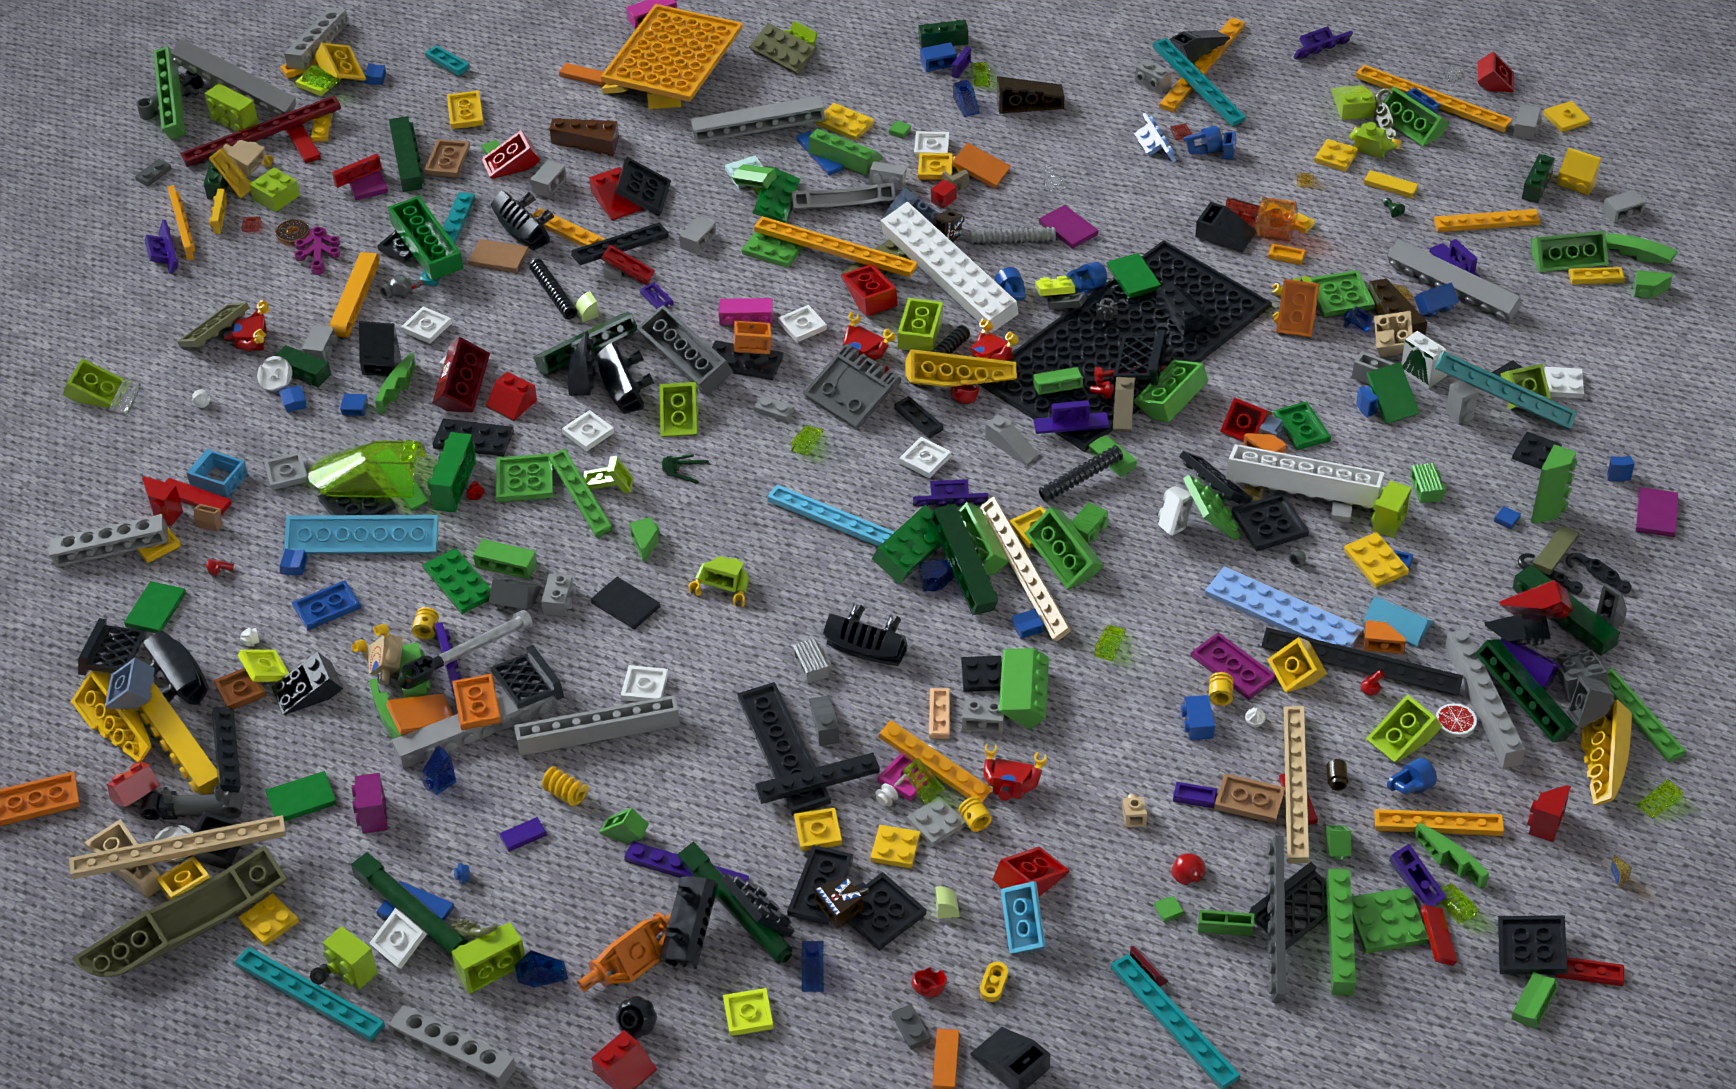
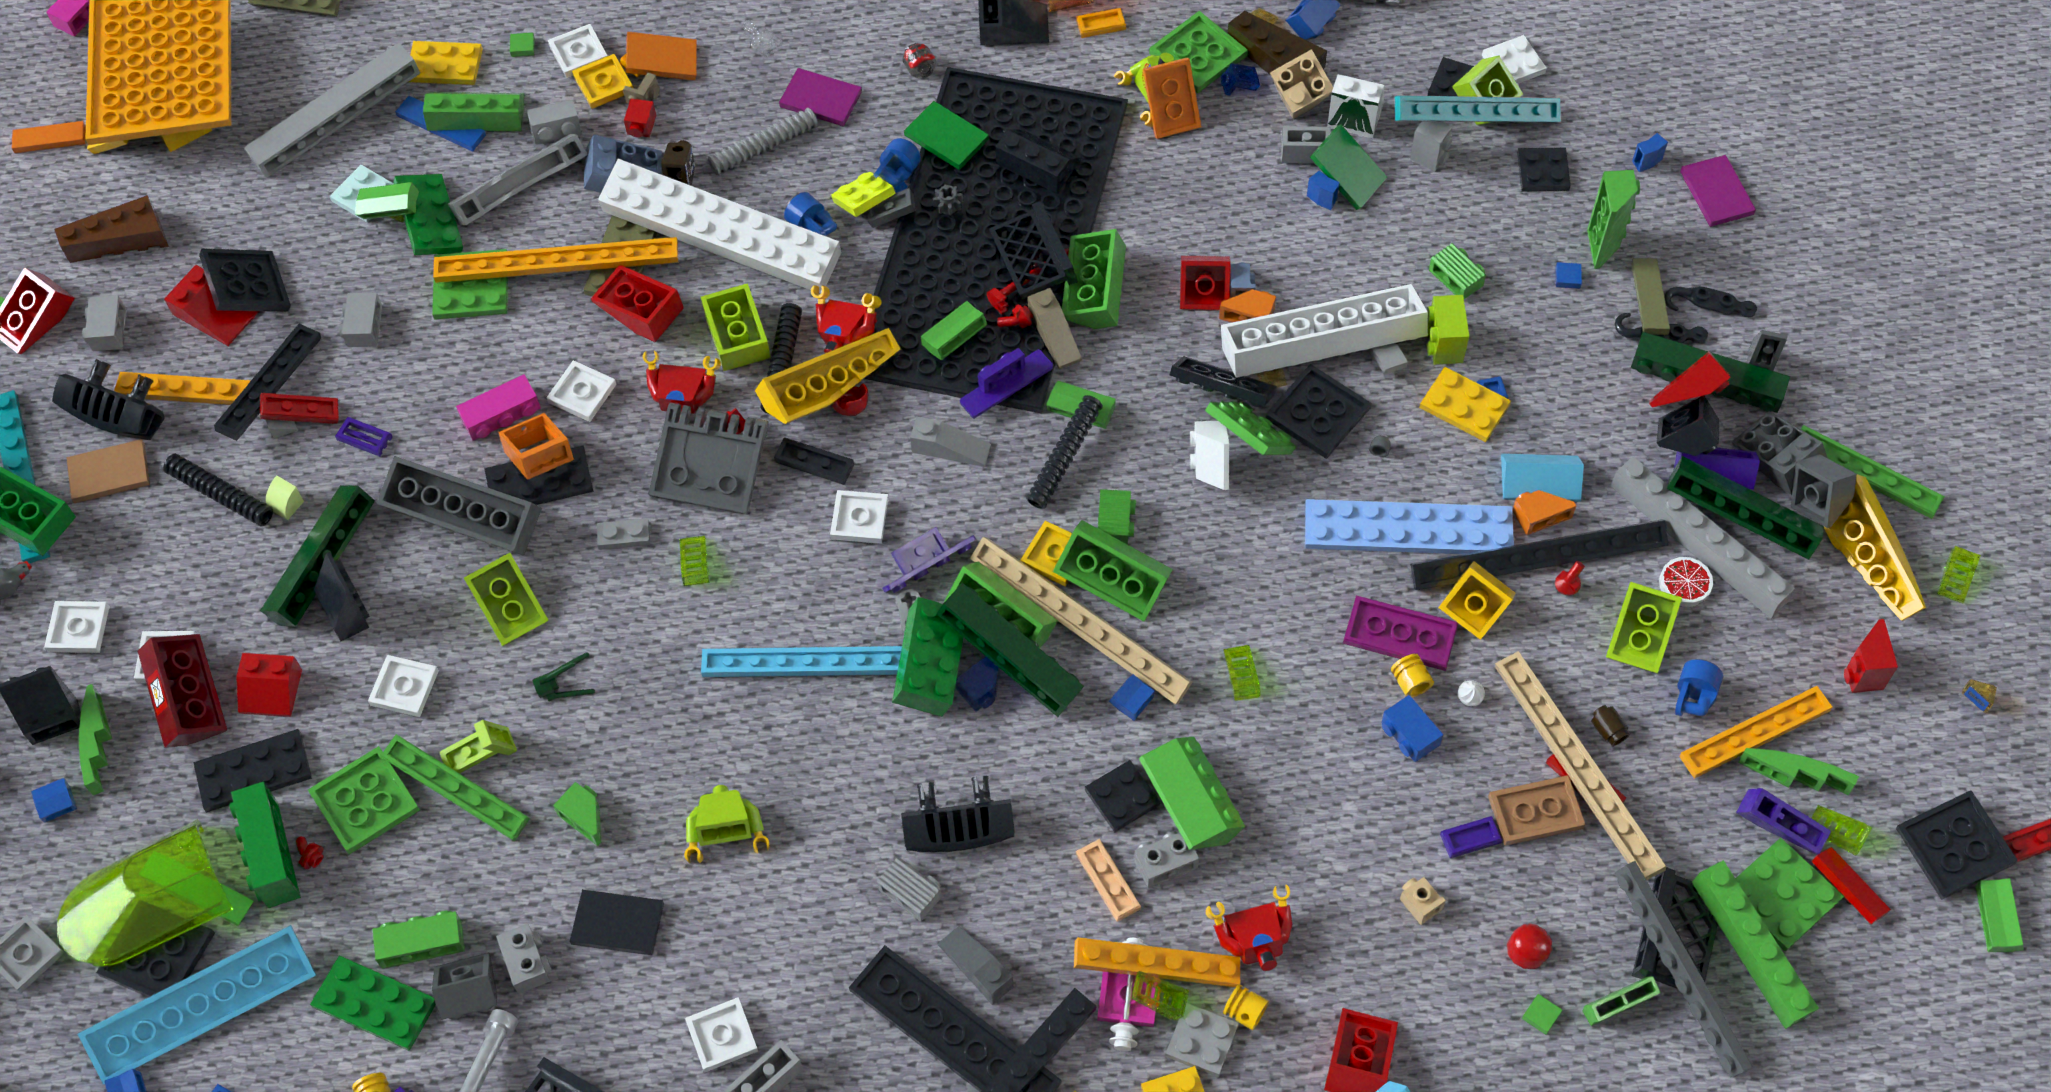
camera: 30 degrees left, 15 degrees up
(618, 379) = (397, 590): black piece -> none
(1147, 229) = (918, 60): none -> clear smoke head
(1302, 425) = (1269, 256): green tile -> none
(1338, 841) = (1668, 816): bright green slope -> none

